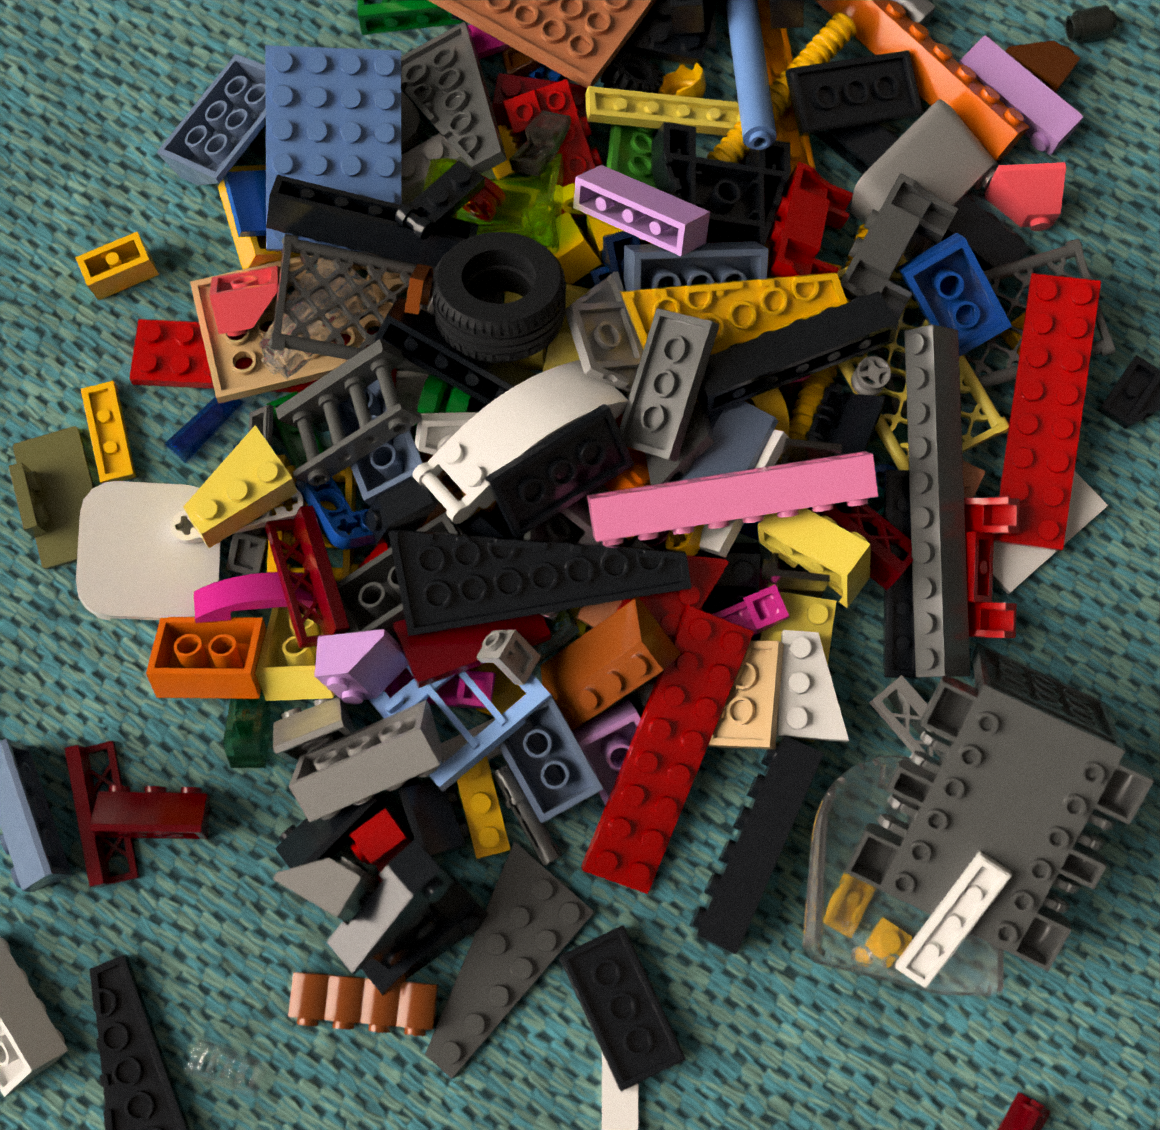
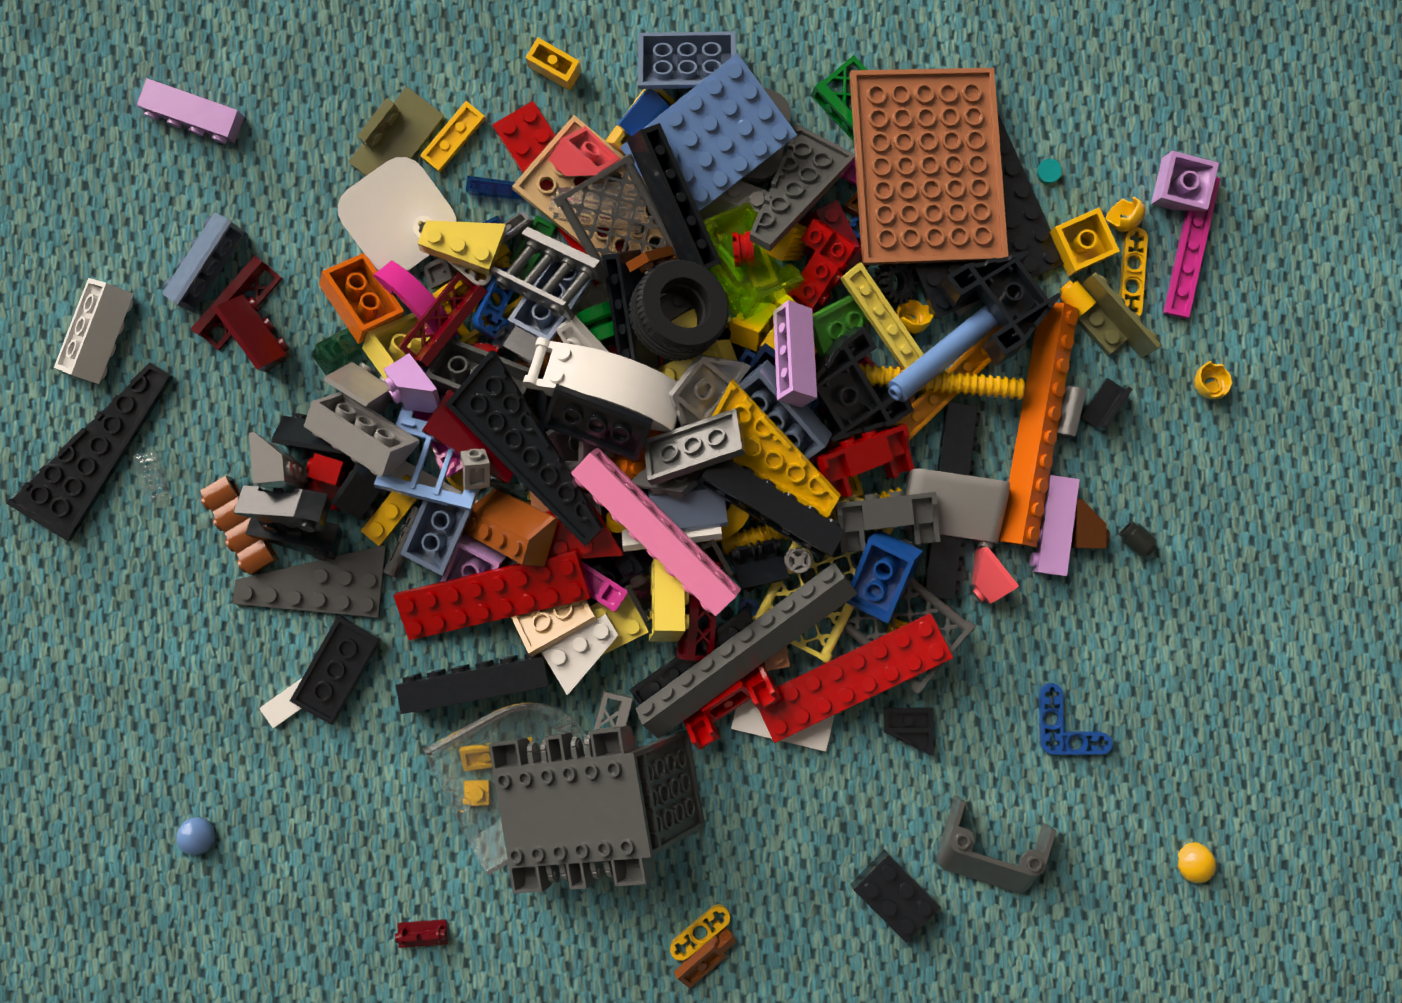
camera: 50 degrees right, 10 degrees up
(440, 200) = (715, 231): black plate -> none
(543, 142) = (804, 262): clear smoke slope -> none
(853, 92) = (977, 426): black tile -> none
(953, 919) = (503, 821): white tile -> none

